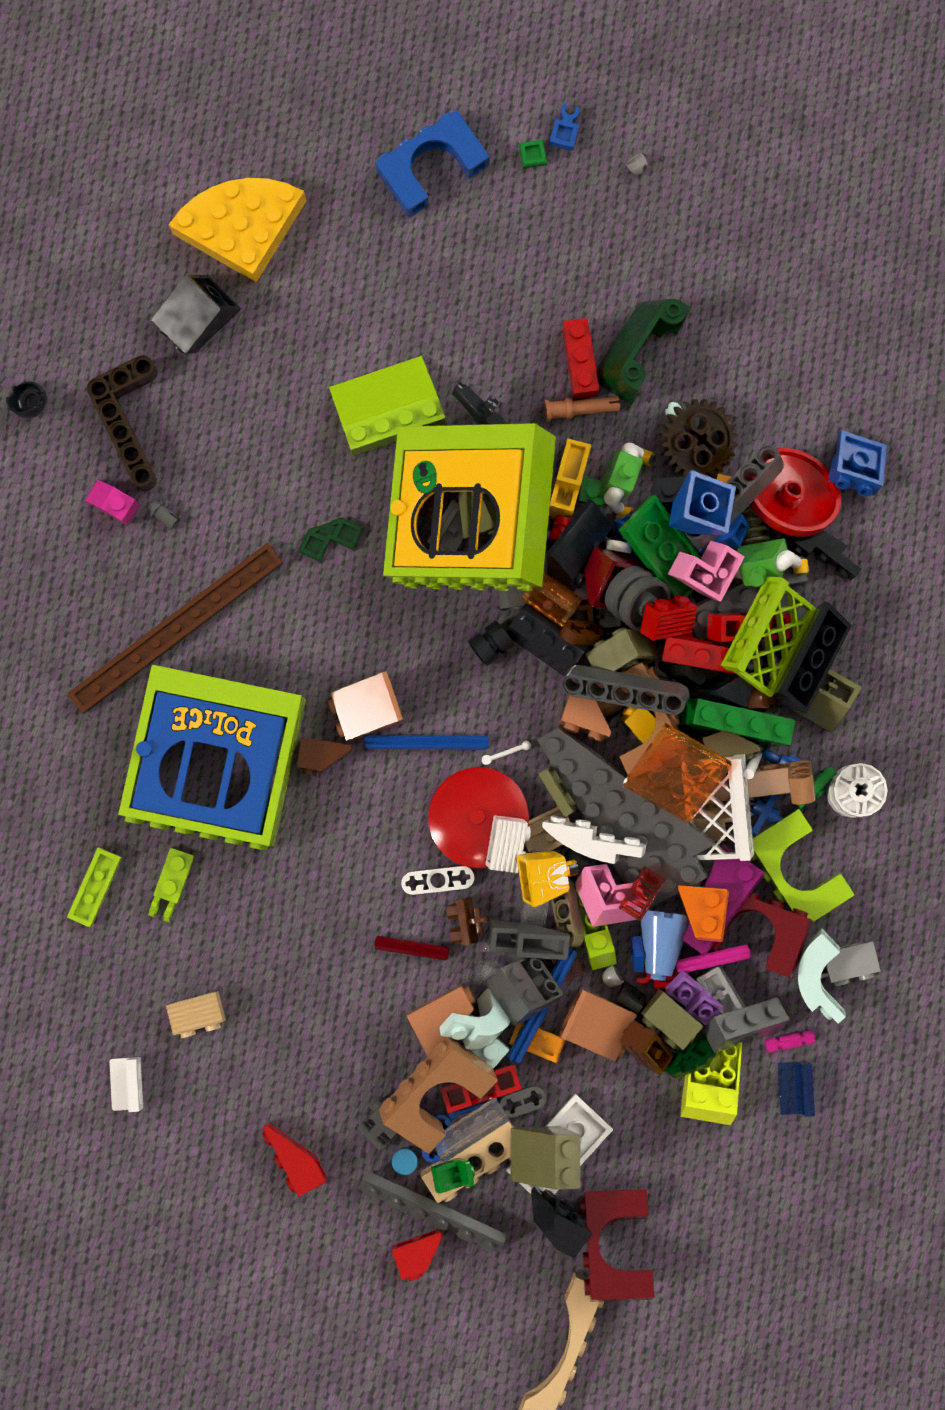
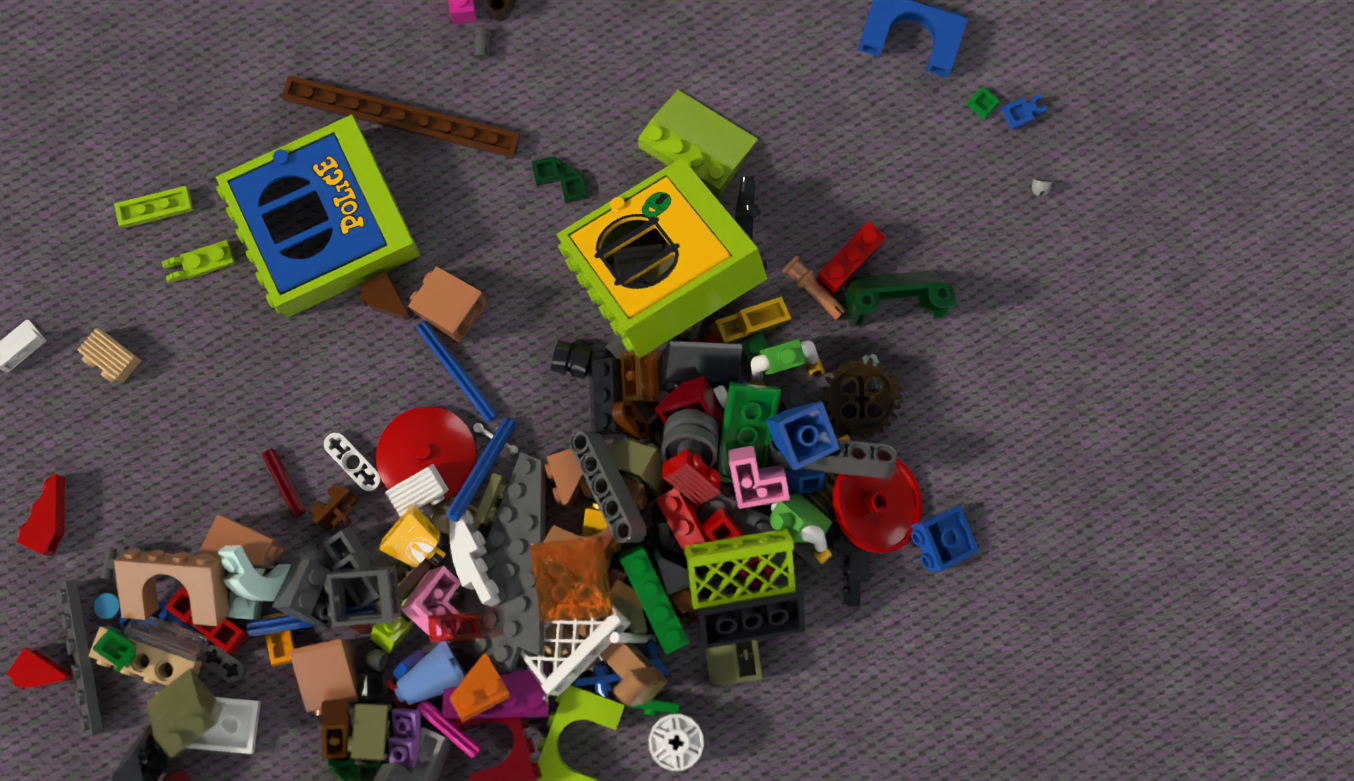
camera: 50 degrees right, 5 degrees down
(527, 781) = (481, 469): none -> blue axle
(575, 924) = (387, 590): none -> dark grey window

